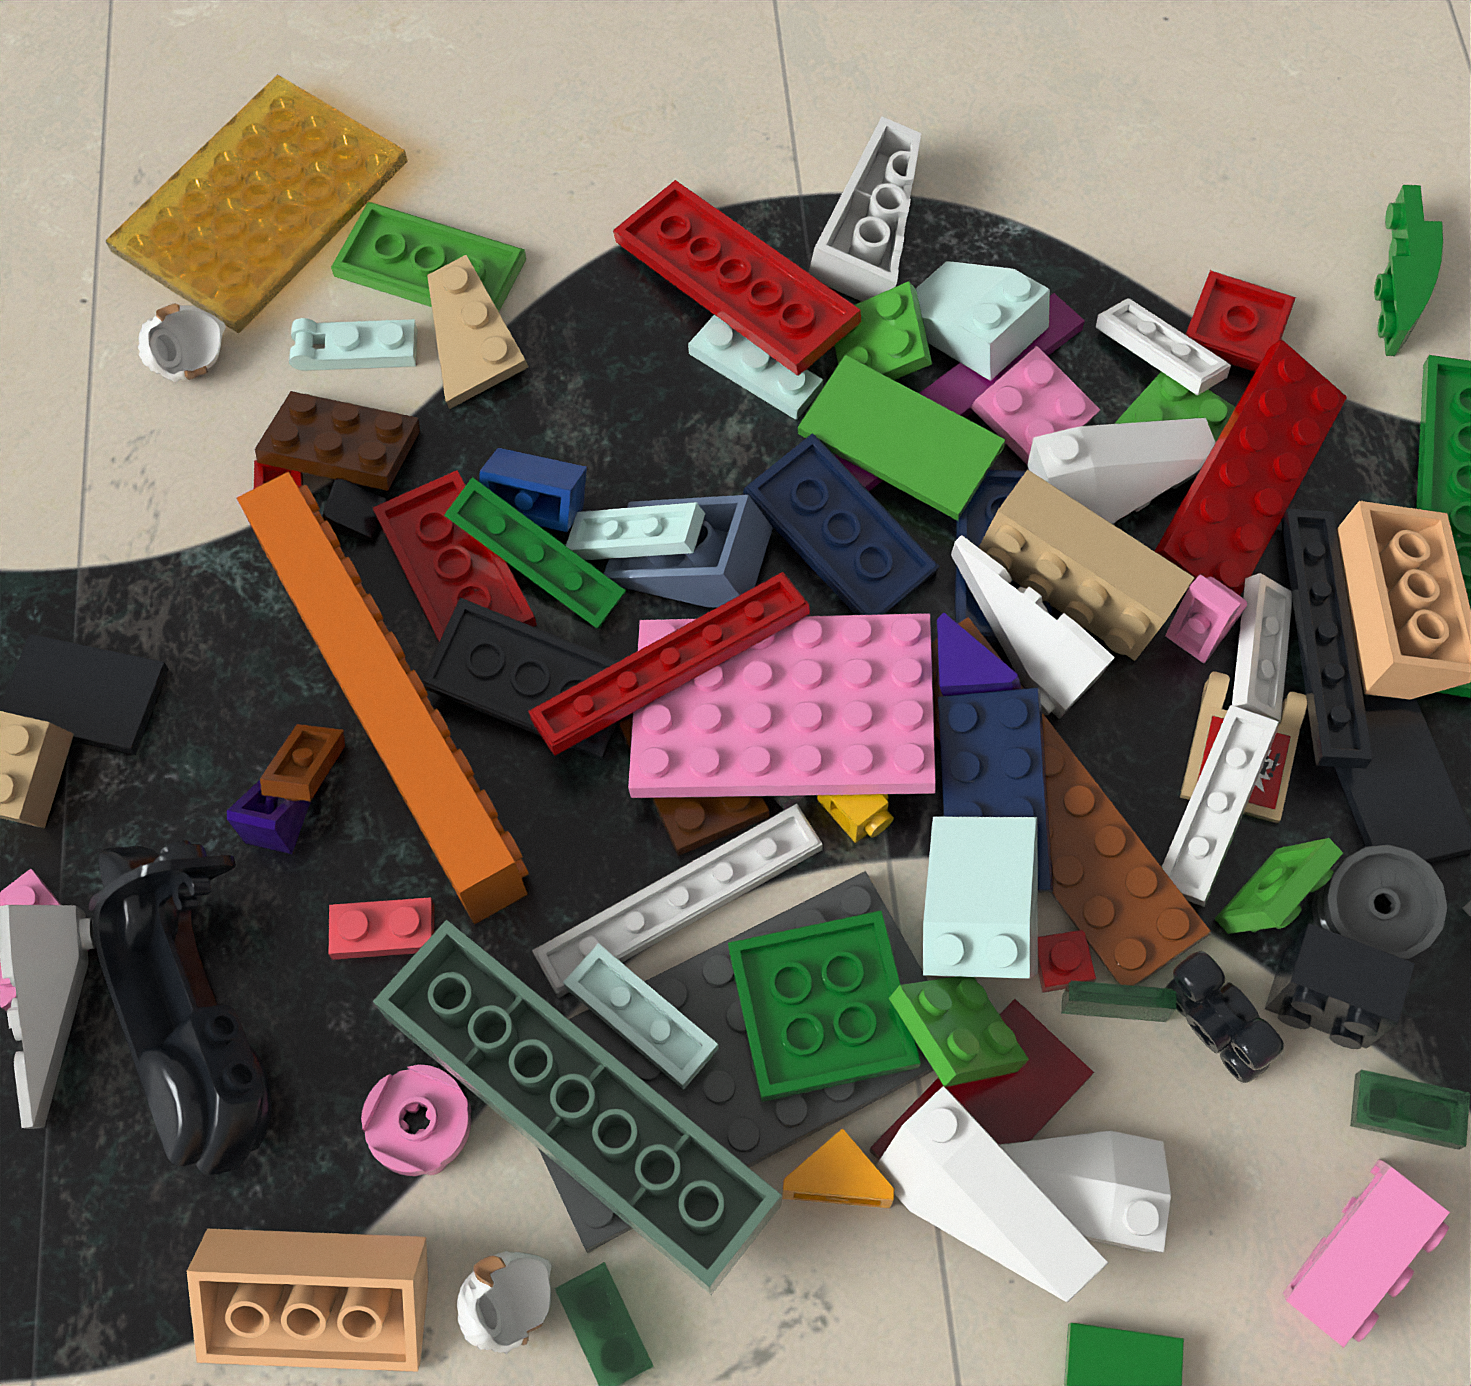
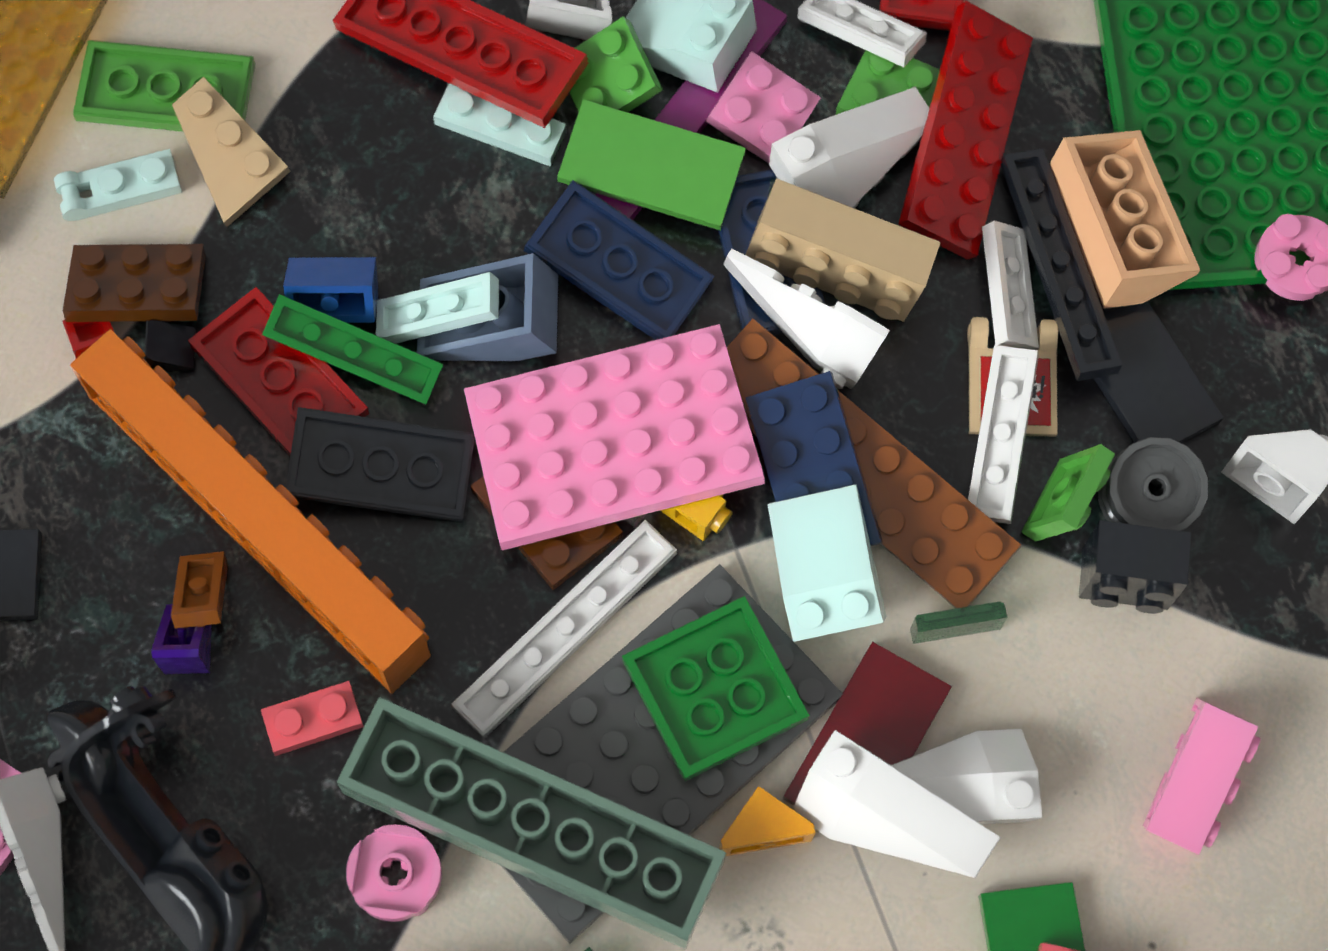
camera: 20 degrees left, 5 degrees up
(641, 1016) = (564, 736): light aqua plate -> none
(668, 663) = (503, 423): red tile -> none
(958, 1029) = (834, 679): bright green plate -> none
(969, 665) = (765, 364): dark purple slope -> none
(1064, 959) = (905, 598): red plate -> none
(1205, 617) = (956, 270): bright pink slope -> none
(1224, 1017) = (1048, 614): black gear -> none
(1410, 1109) = (1212, 651): clear green plate -> none

